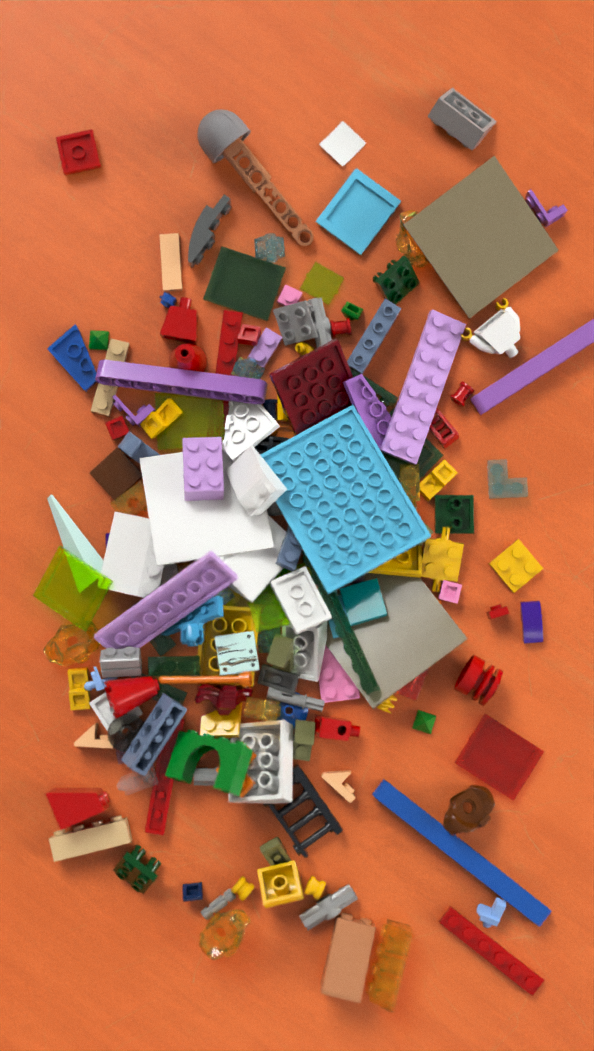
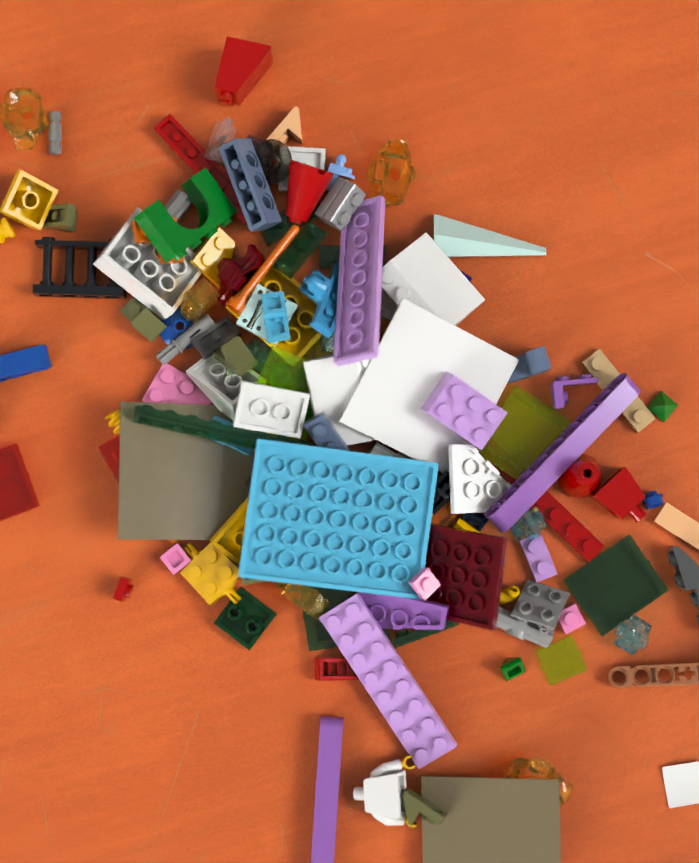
camera: 130 degrees right, 0 degrees up
(72, 588) = (442, 209): clear neon green piece -> none
(74, 357) = (662, 370): blue wing -> none
(78, 696) = (339, 143): yellow slope -> none
(91, 838) = (200, 61): tan brick -> none
(116, 473) = (520, 328): reddish brown tile -> none
(117, 428) = (563, 362): red plate -> none
(123, 502) = (488, 314): clear yellow brick -> none
(135, 872) = (132, 79): dark green plate -> none
(161, 418) = (542, 408): yellow slope -> none
(192, 892) = (83, 117): dark blue slope -> none
(234, 645) = (275, 316): none -> medium azure slope
(242, 888) = (51, 164): yellow wheel -> none
(249, 334) = (561, 552): plate -> none
(254, 482) = (414, 448): white slope -> none
(328, 727) = (138, 351): red torso -> none
(335, 779) = (83, 321): light nougat slope -> none
(340, 327) = (504, 645): red bush -> none
(340, 409) = (424, 583): none -> bright pink plate
(358, 211) = (605, 748): medium azure piece -> none
(363, 602) = (226, 469): teal tile -> none
(373, 336) = (472, 669): sand blue brick -> none
(397, 280) = (509, 733): dark green plate -> none
(424, 722) = (75, 443): green slope -> none
(437, 480) = (290, 626): yellow slope -> none
(462, 394) = (353, 713): red bush -> none
(479, 680) = (69, 523): red wheel -> none
(489, 306) = (417, 804): none -> olive slope
(500, 485) = (240, 683): clear light blue plate -> none
(515, 566) = (153, 640): yellow plate -> none
(531, 621) = (89, 614): dark purple slope -> none

